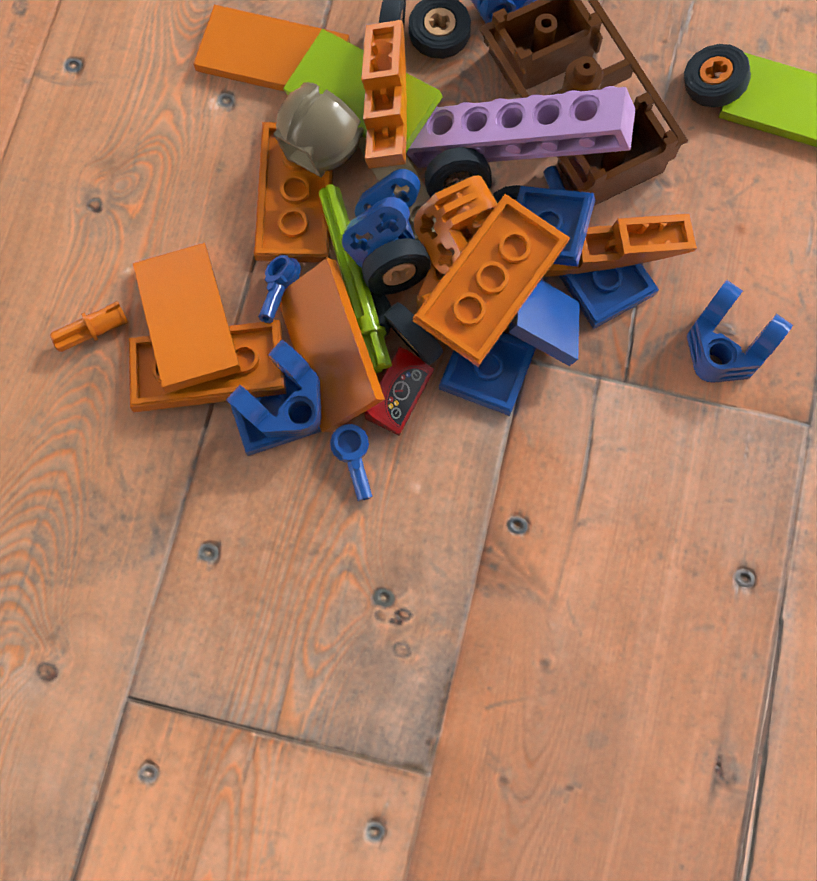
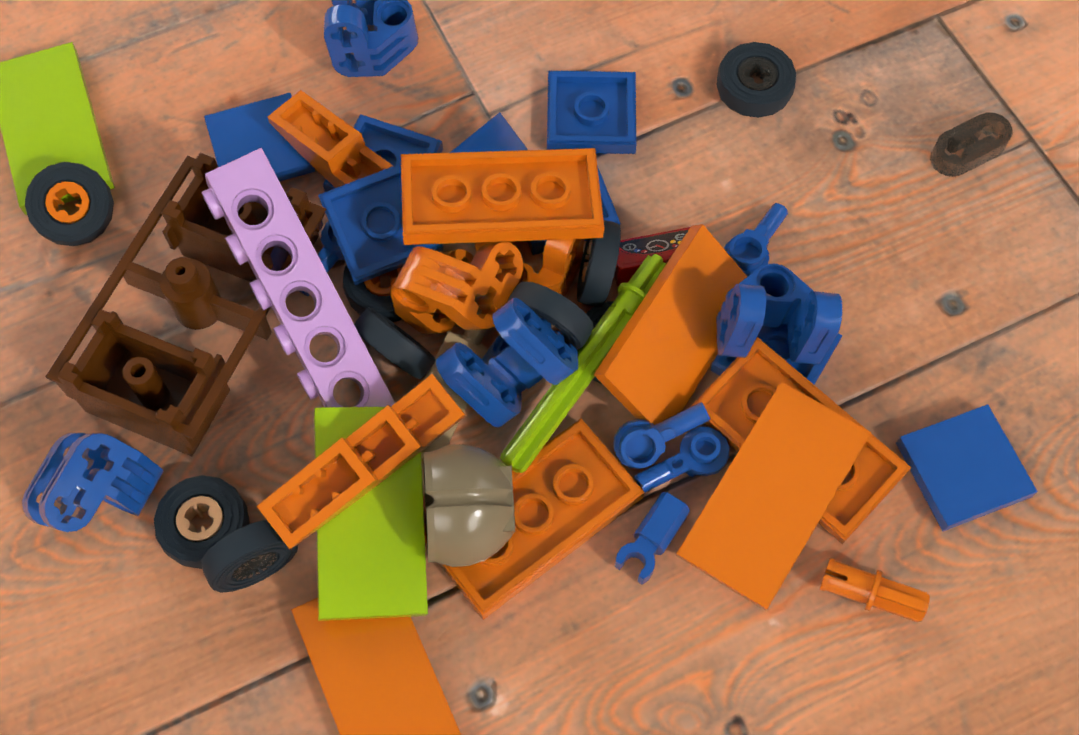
camera: 130 degrees left, 10 degrees down
(105, 449) = (966, 467): none -> blue tile
(226, 242) = (654, 534): none -> blue bar
(248, 303) = (700, 453): none -> blue plate
(292, 675) = (975, 151): none -> clear smoke beam
(482, 595) = (741, 91): none -> black bush
(543, 442) = (592, 111): none -> blue tile
(703, 203) = (246, 129): none -> blue tile

